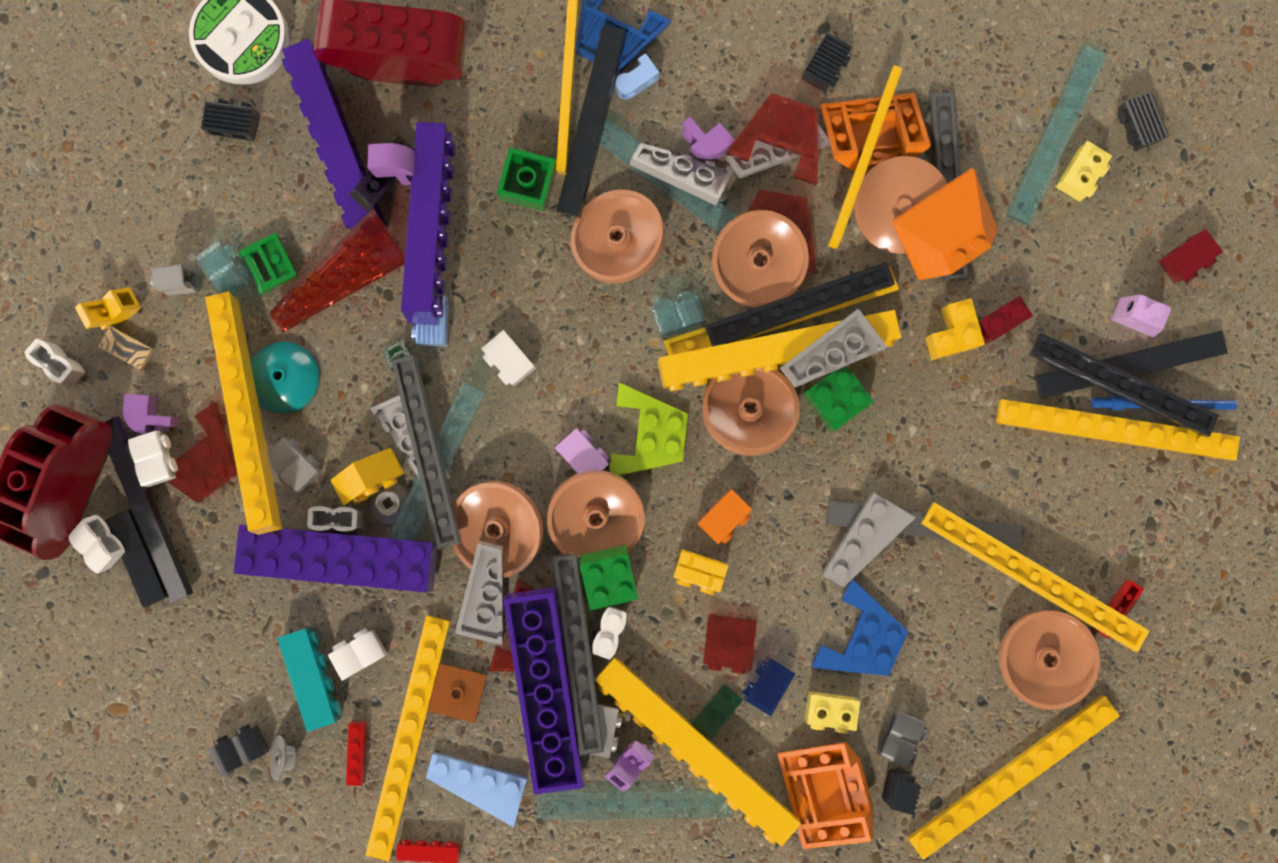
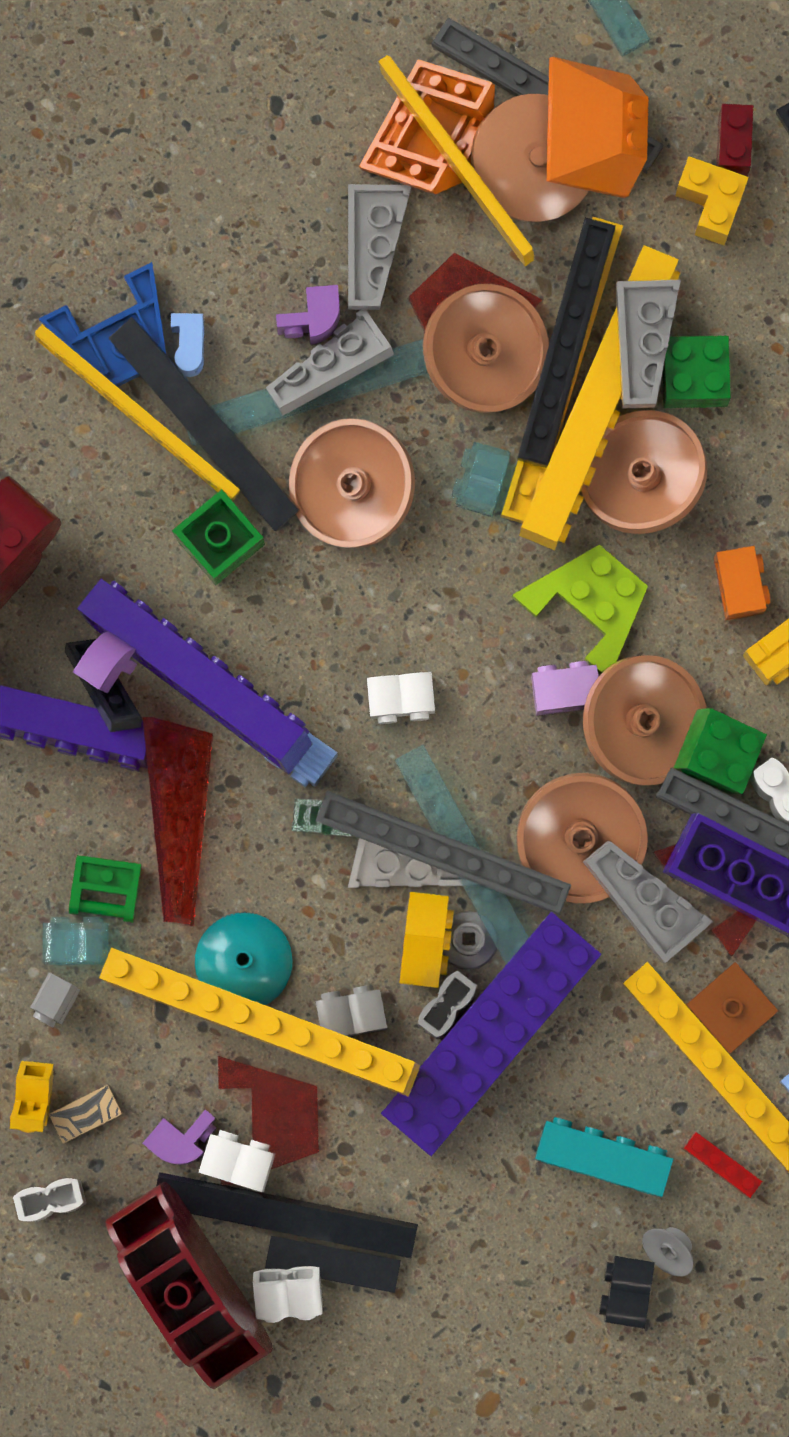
camera: 55 degrees left, 5 degrees down
(357, 654) = (612, 1086): white brick -> none
(785, 126) = (361, 220): clear red wing -> none
(826, 62) = (320, 128): black brick -> none

